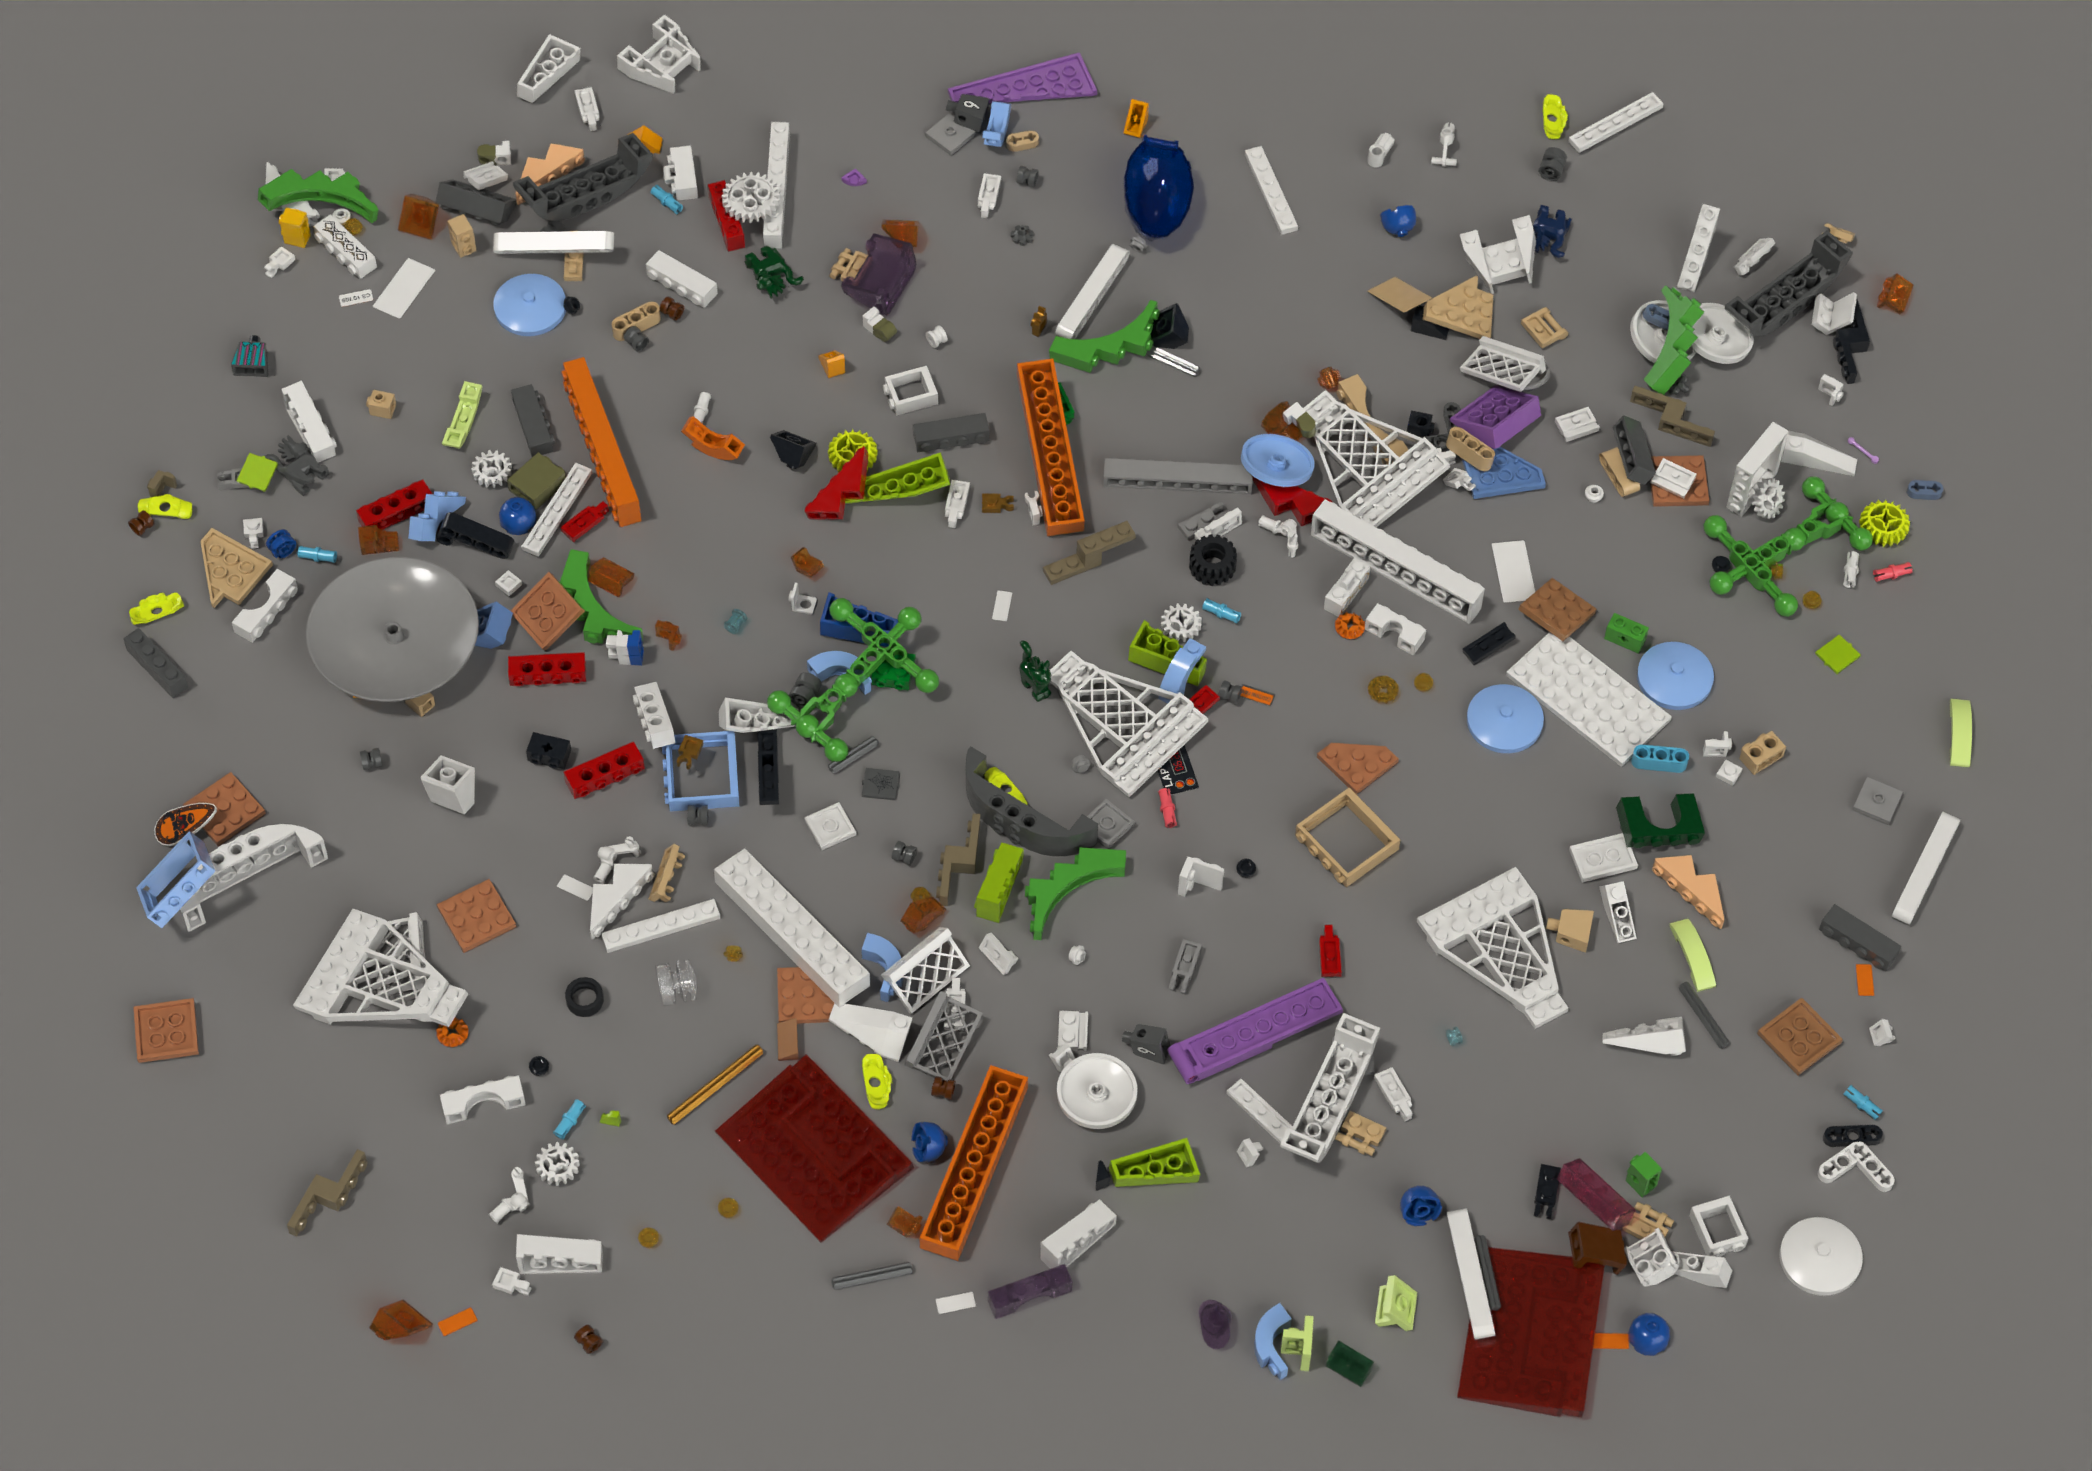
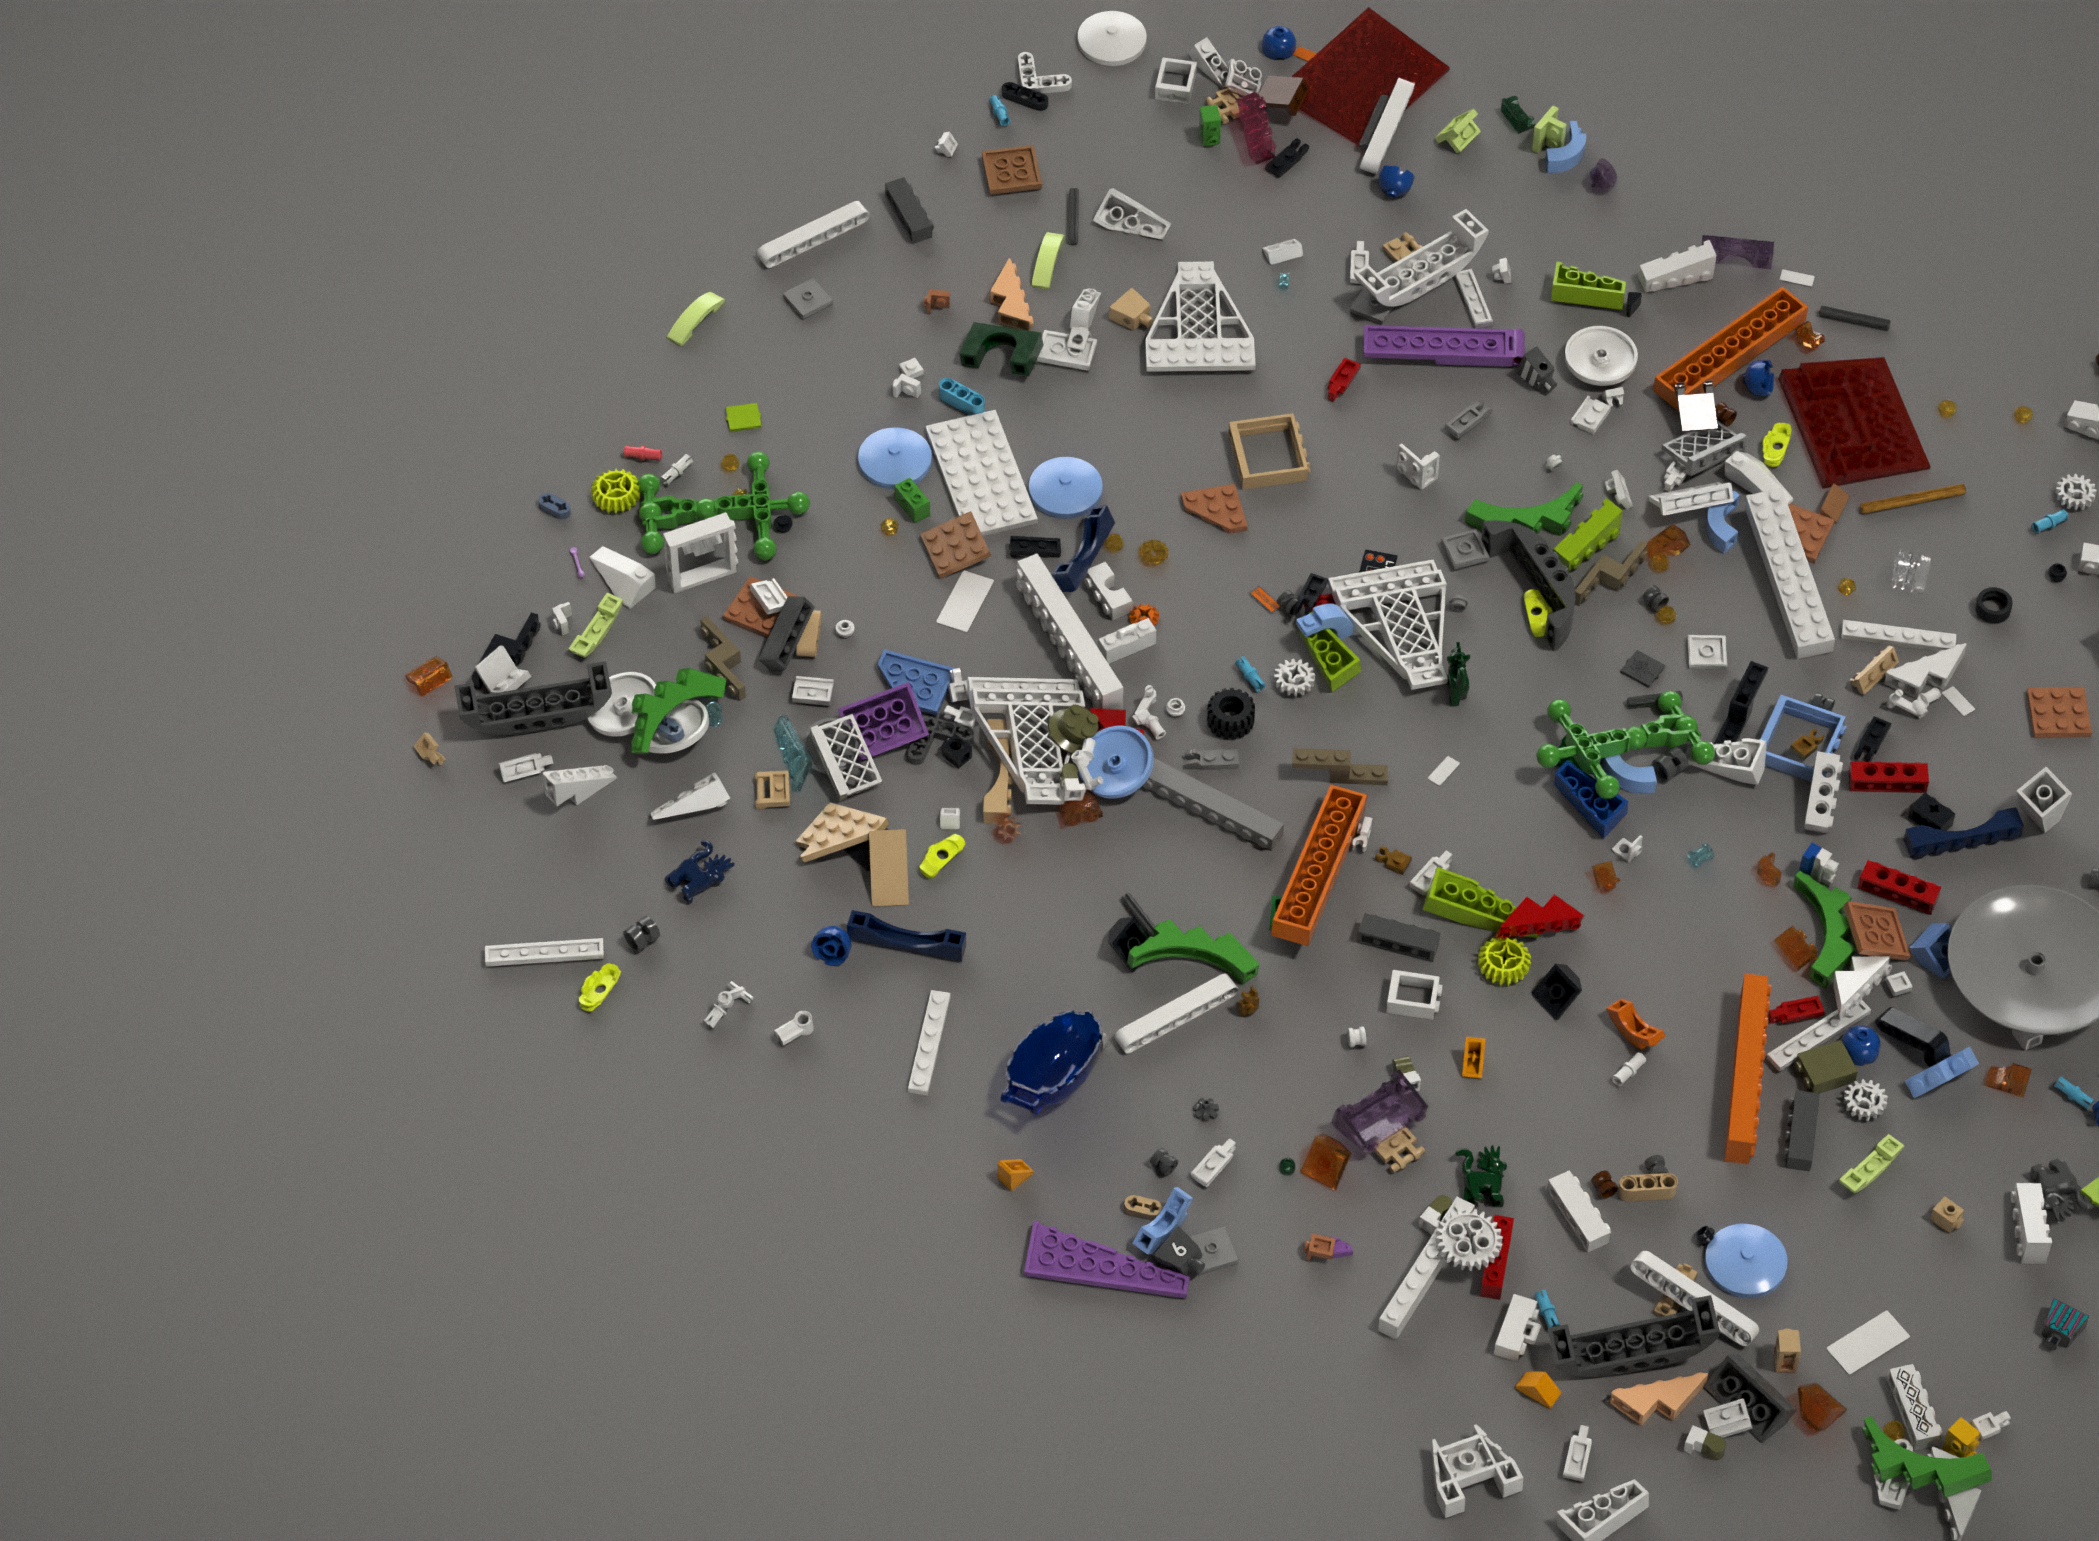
camera: 150 degrees left, 5 degrees down
(356, 297) = (1923, 1354): white sticker -> none
(390, 515) = (1985, 1096): red brick -> none
(545, 550) = (1855, 984): none -> white slope
(545, 720) = (1927, 840): none -> dark blue arch
(612, 1118) = (2014, 507): lime tile -> none
(636, 805) = (1873, 738): none -> black hinge
(794, 225) = (1434, 1213): none -> leg
(867, 162) = (1319, 1246): none -> nougat bracket
(886, 844) = (1666, 615): none -> clear yellow plate
(931, 219) = (1287, 1166): none -> clear green hinge
(968, 1064) = (1696, 410): none -> flag
(1167, 807) = (1405, 539): coral pin -> none
(1213, 696) = (1311, 593): none -> black hinge
(1222, 525) = (1204, 742): white hinge -> none
(1246, 868) = (1368, 468): black plate -> none
(1265, 547) = (1175, 703): none -> white plate
(1303, 436) = (1082, 759): none -> white pin
(1314, 259) = (870, 929): none -> dark blue arch
(1333, 476) = (1071, 727): none -> olive piece
(1367, 346) = (932, 863): none -> neon yellow piece
(1386, 373) = (950, 818): none -> white slope
(1433, 609) = (1097, 527): none -> dark blue arch
(1470, 449) = (935, 703): tan beam -> none
(1479, 1076) = (1283, 251): none -> white slope
(1505, 259) = (763, 859): white wedge -> none
(1558, 366) = (793, 752): none -> clear light blue wing
(1597, 290) = (705, 795): none -> white wedge
(1599, 872) = (1080, 331): none -> white bracket
(1628, 604) = (892, 529): none -> clear yellow plate
(1642, 366) = (714, 710): none -> clear light blue bush
(1759, 852) = (937, 298): none -> nougat bracket
(1764, 754) = (873, 366): tan brick -> none
(1795, 392) = (598, 627): none -> yellowish green slope
(1865, 979) = (926, 189): orange sticker -> none

